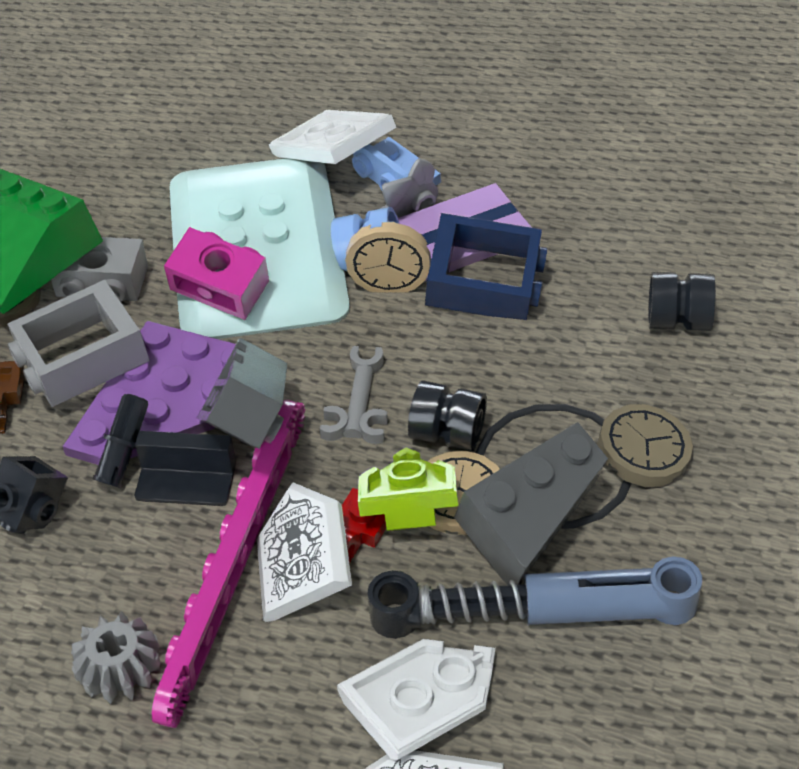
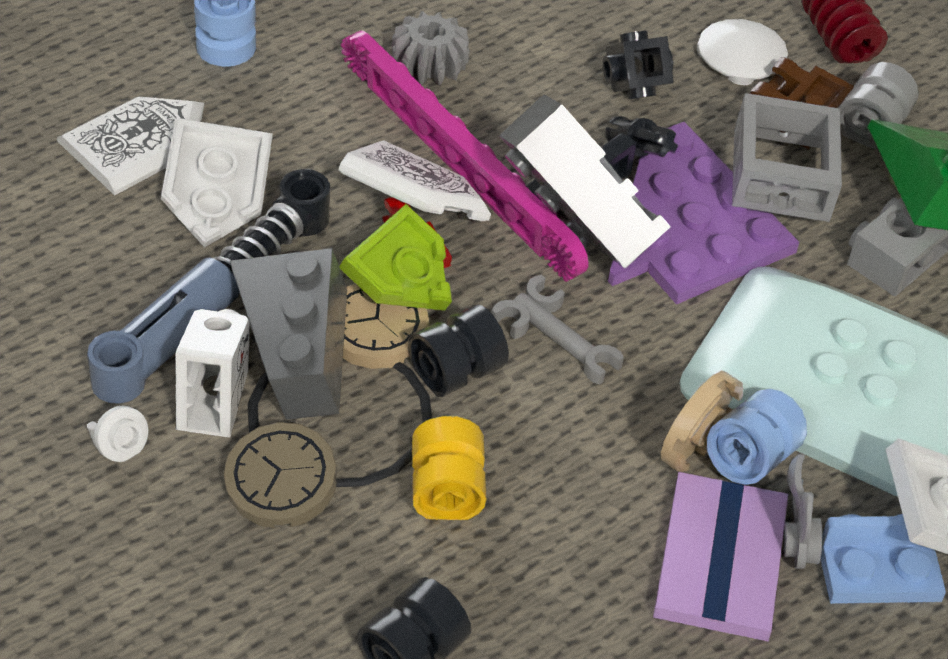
camera: 120 degrees right, 0 degrees up
(232, 290) = (792, 278): dark pink brick -> none
(478, 295) = (660, 464): dark blue window -> none
(551, 358) = (448, 469): none -> yellow wheel
(616, 520) = (211, 346): none -> white torso
(718, 545) = (119, 433): none -> white plate

